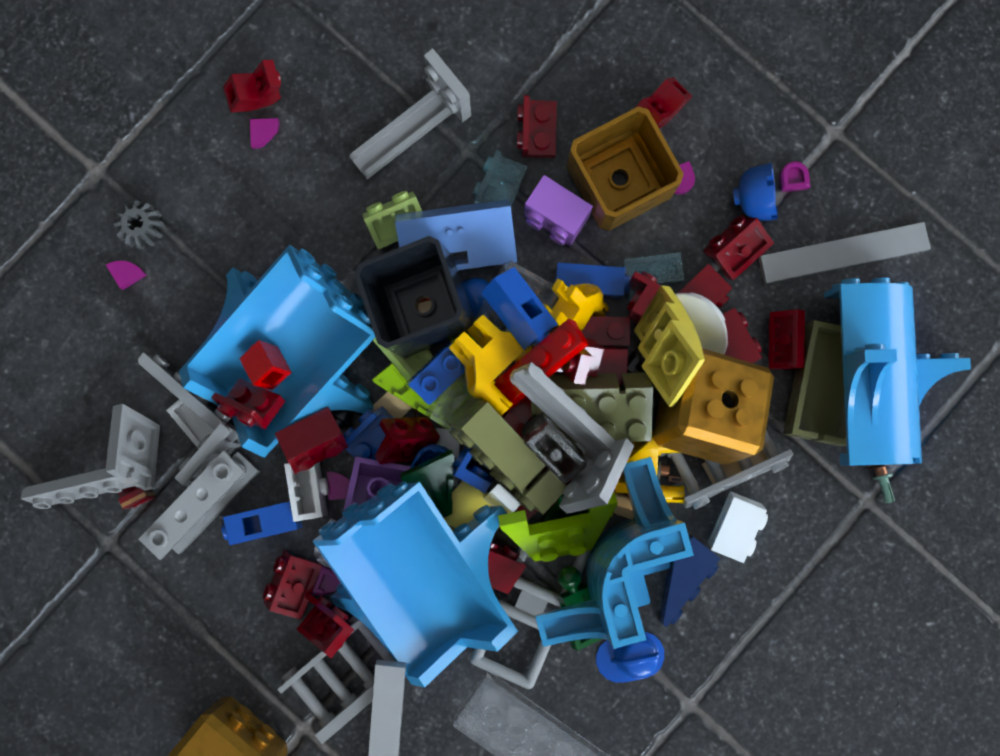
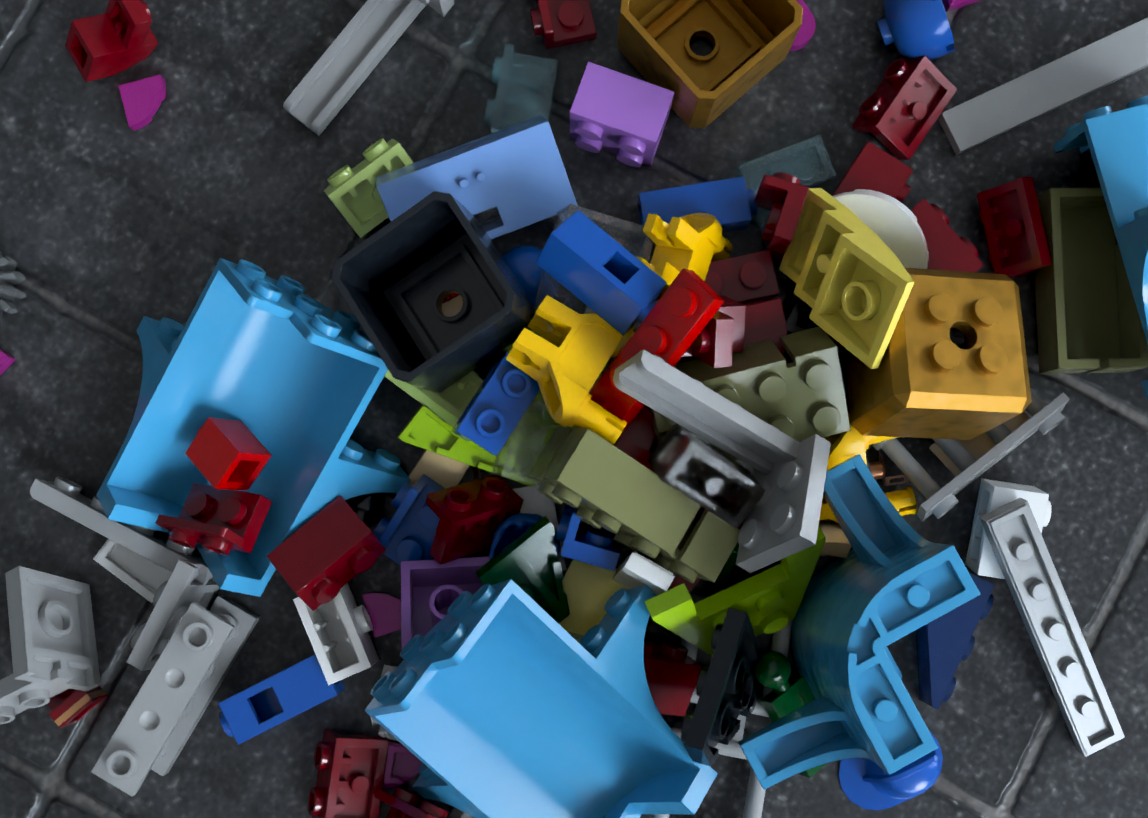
camera: 15 degrees left, 0 degrees up
(535, 581) = (723, 689): none -> black plate
(750, 593) = (1052, 626): none -> light grey tile

